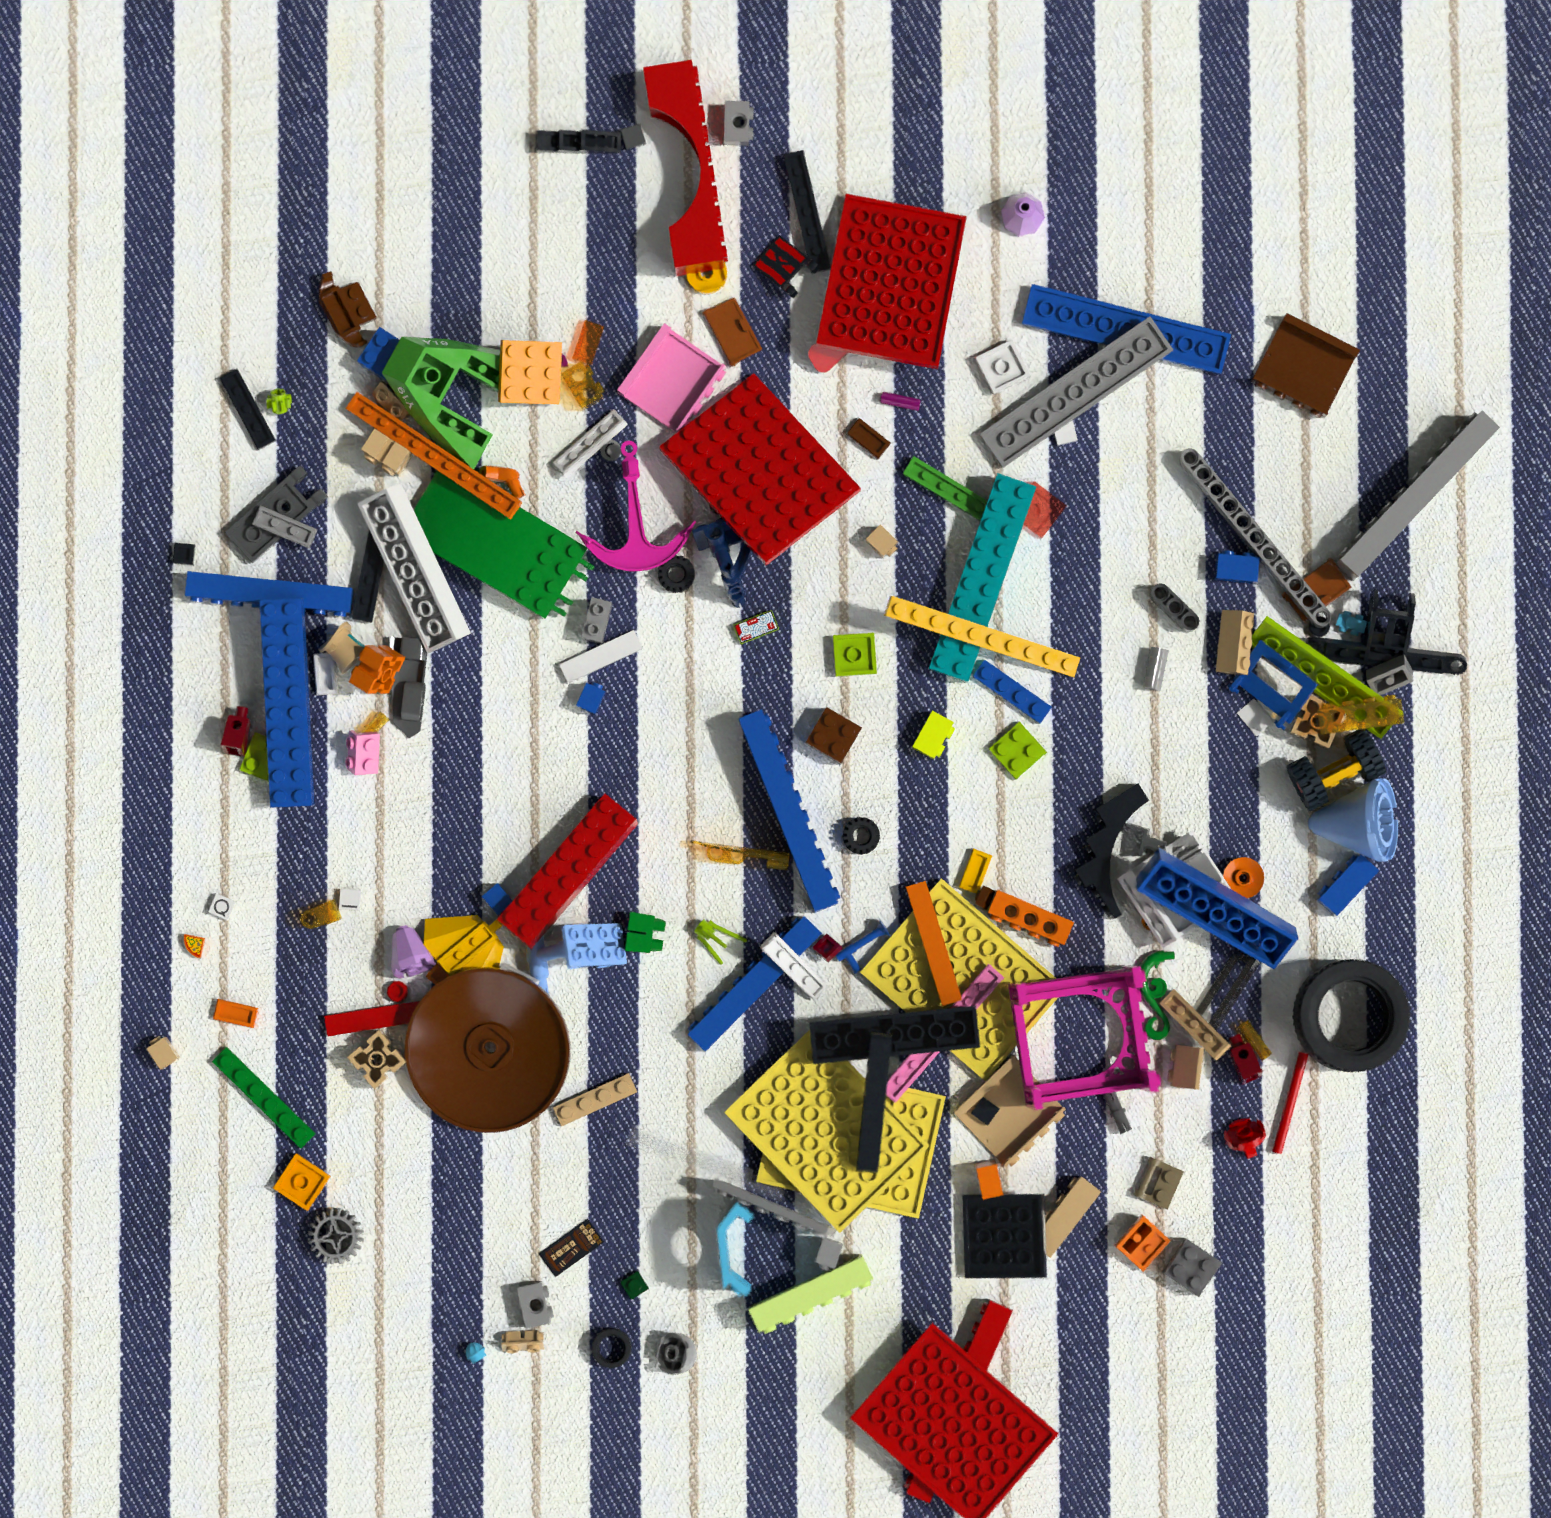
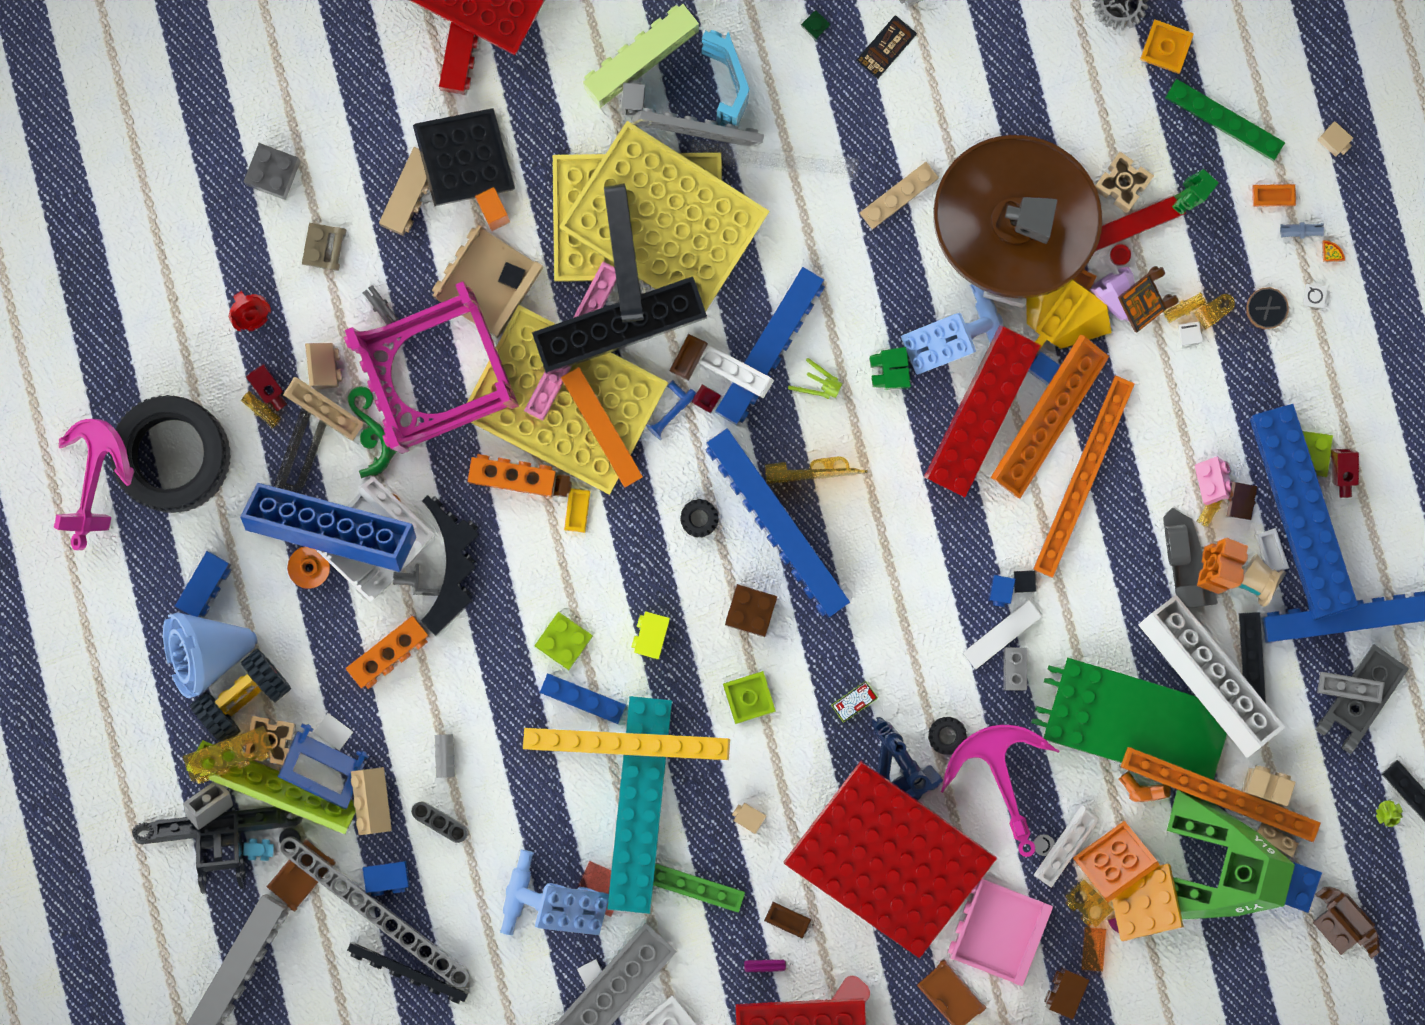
camera: 160 degrees right, 0 degrees up
(217, 972) = (1301, 230): none -> sand blue pin
(270, 906) = (1267, 308): none -> black tile
(307, 1033) = (1197, 191): none -> green hips
(342, 727) = (1241, 500): none -> reddish brown piece
(349, 925) = (1184, 307): none -> clear yellow pin
(386, 939) = (1143, 302): none -> flag
(473, 1043) = (1033, 217): none -> dark grey torso
(486, 787) = (1083, 476): none -> orange plate
(504, 851) = (1050, 416): none -> orange plate
(547, 417) = (1116, 861): none -> orange plate
(566, 701) = (1024, 581): none -> black tile
(624, 307) = (1066, 993): none -> reddish brown brick
(834, 992) = (688, 357): none -> reddish brown tile
(1082, 499) = (557, 907): none -> light blue plate
(1142, 1242) = (326, 183): orange brick -> none
(1218, 769) = (358, 668): none -> orange brick
(1244, 479) = (398, 969): none -> black plate
(1290, 1102) = (211, 358): red piece -> none
(1415, 1042) = (100, 440): none -> dark pink piece

